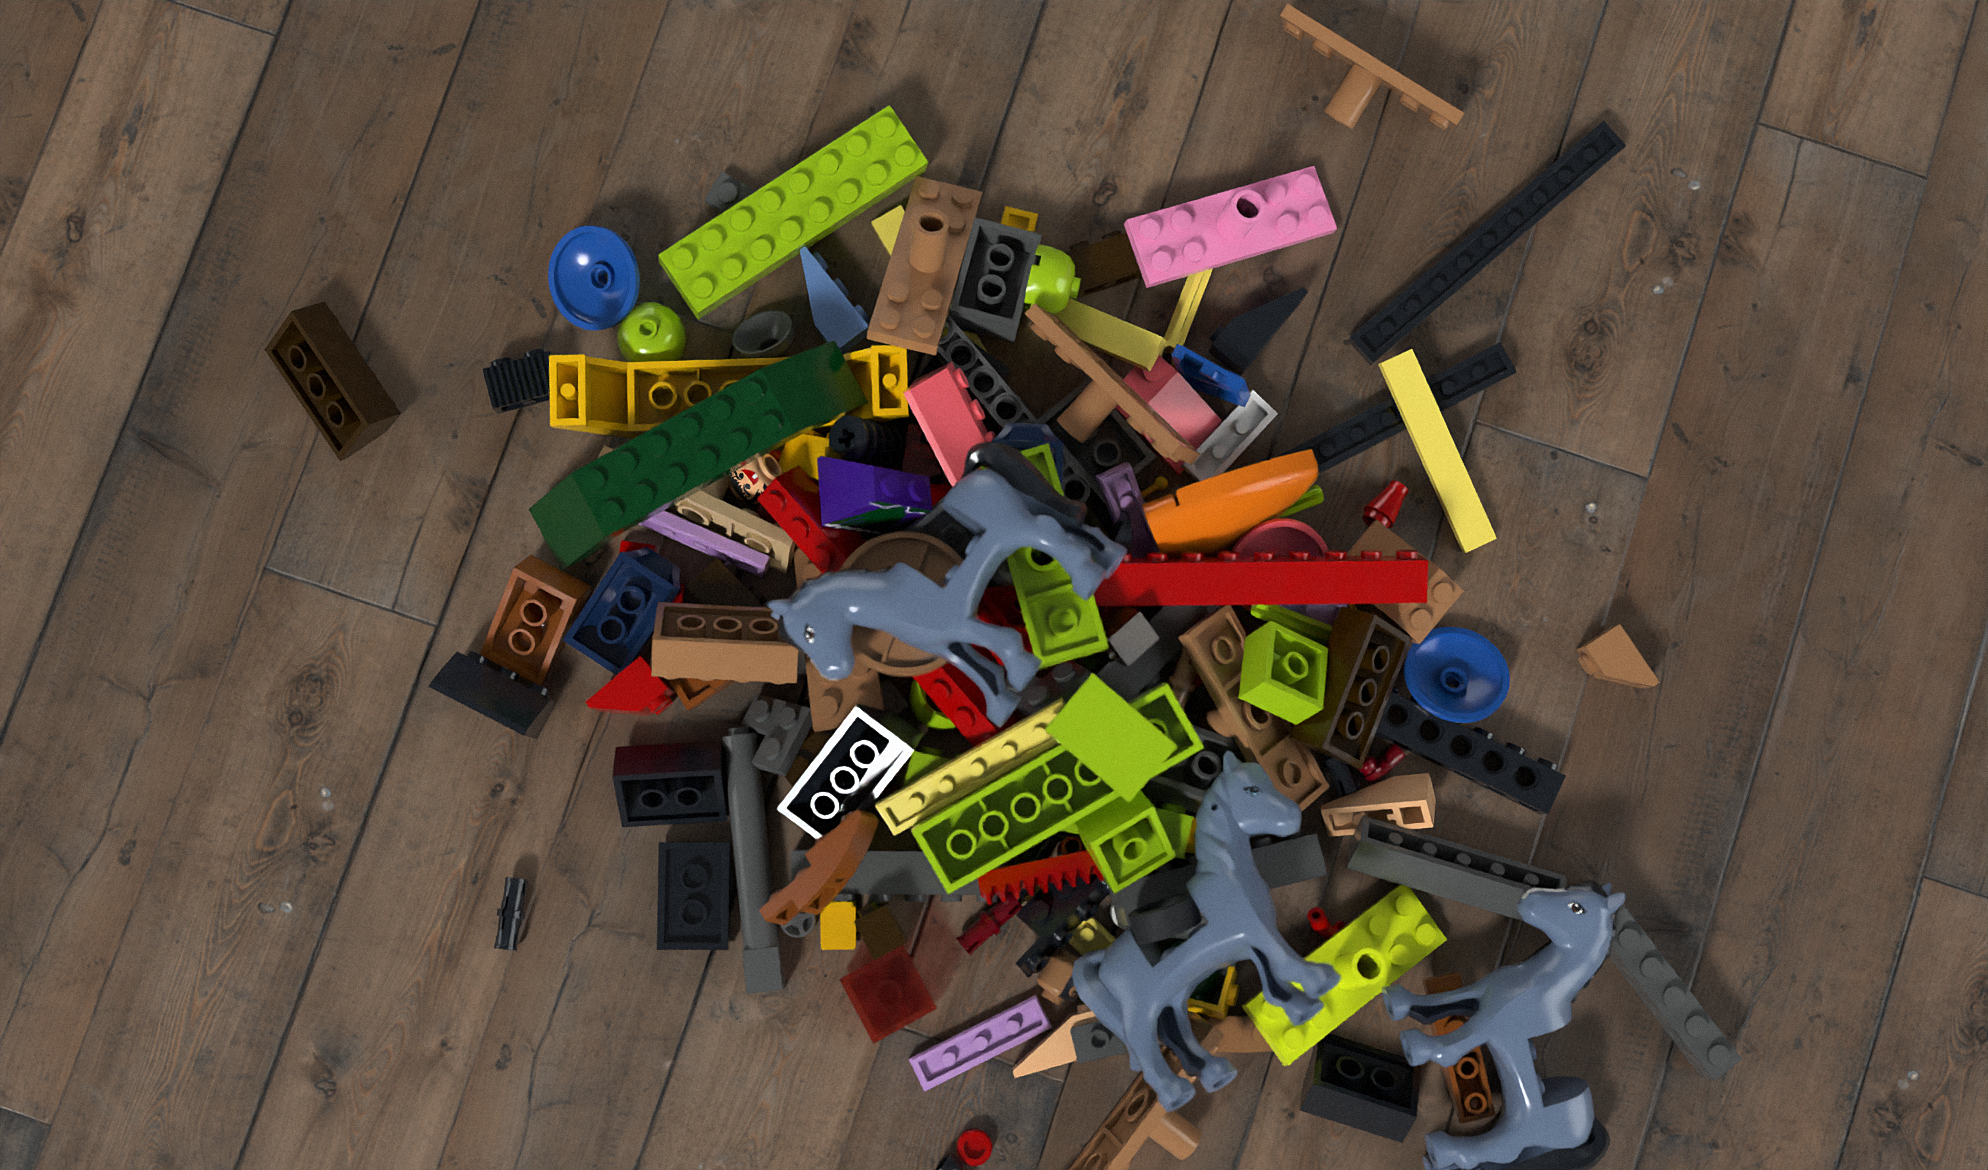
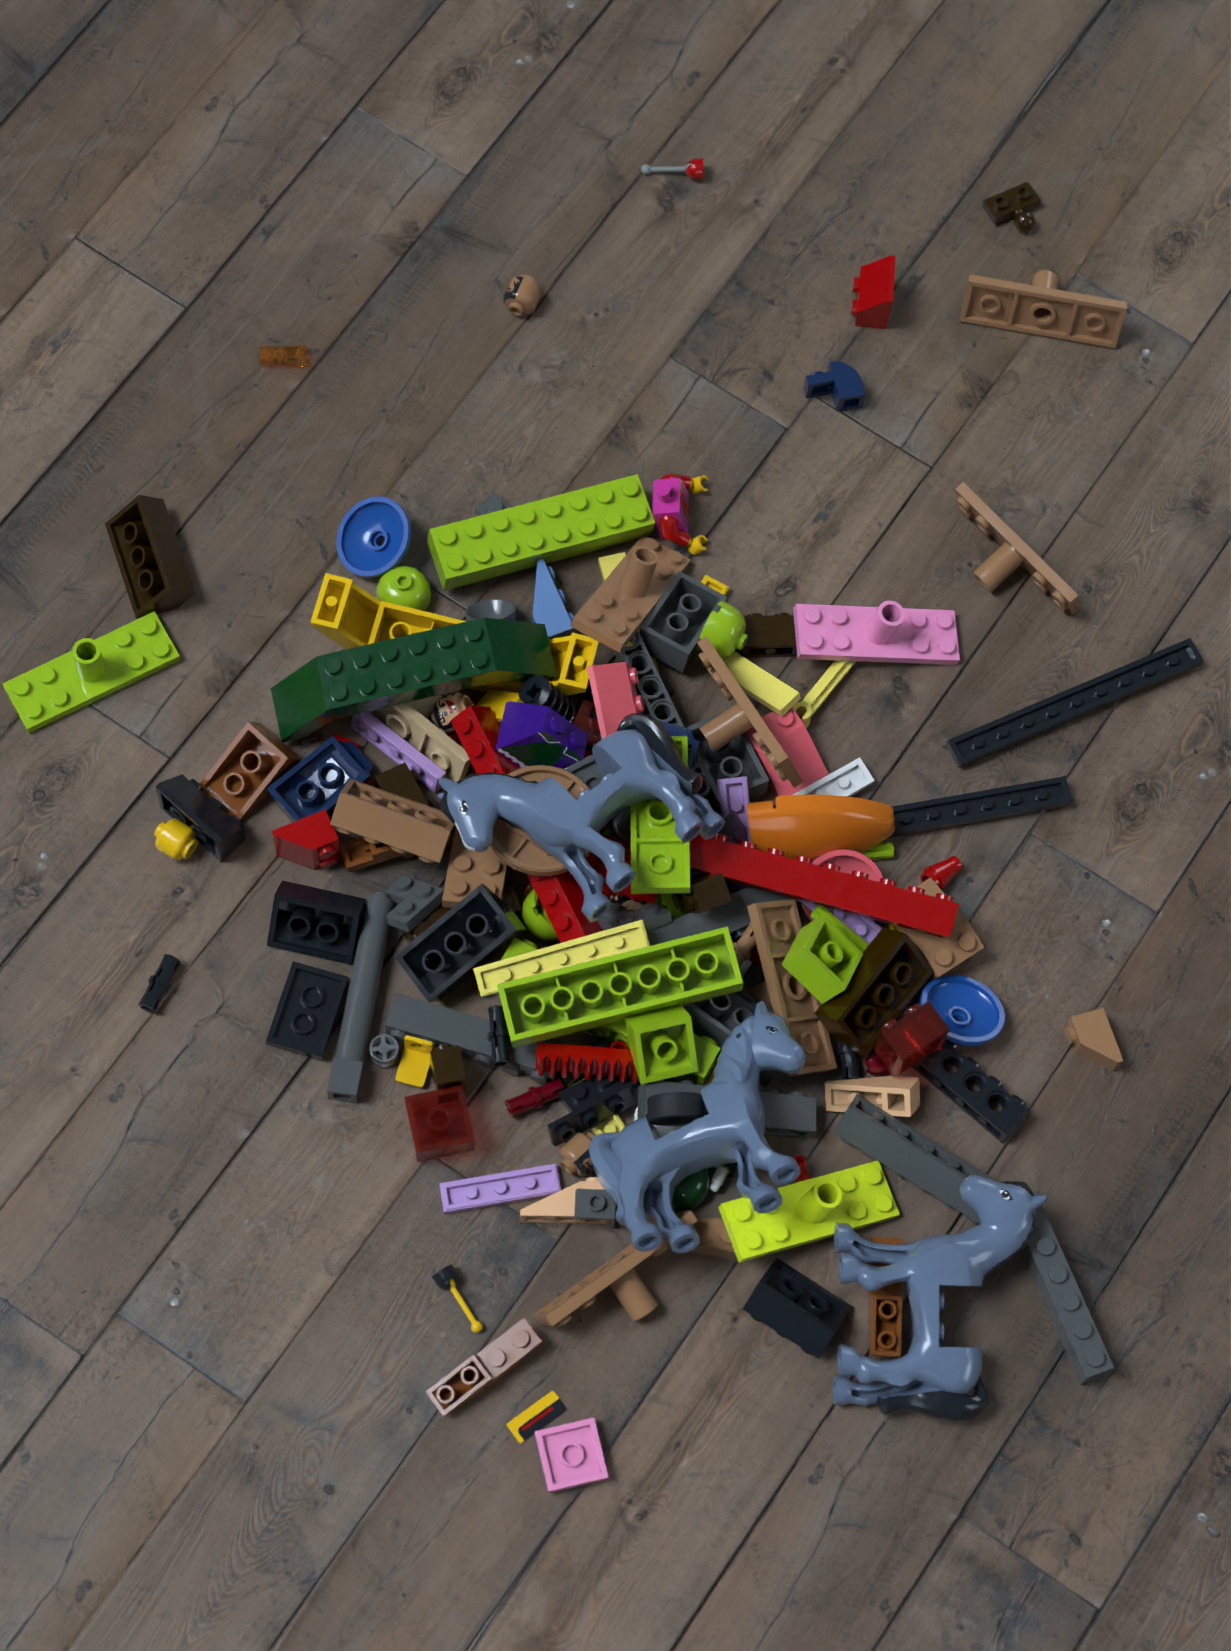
camera: 15 degrees right, 15 degrees down
(333, 526) = (91, 671): none -> lime plate
(407, 67) = (279, 355): none -> clear orange bar
(473, 732) = (175, 839): none -> yellow head
(518, 381) = (292, 597): black brick -> none
(832, 865) = (426, 1005): dark orange slope -> none
(932, 886) = (498, 1037): none -> black pin
(942, 133) = (672, 506): none -> torso
(974, 1147) = (471, 1267): red tile -> none
(1110, 737) = (672, 953): lime tile -> none
(1209, 377) = (828, 736): blue wing -> none
(1228, 997) = (701, 1206): yellow bracket -> none
(1250, 332) = (872, 715): black slope -> none
(1412, 739) = (910, 1038): none -> clear red brick
(1437, 451) = (993, 842): light yellow tile -> none

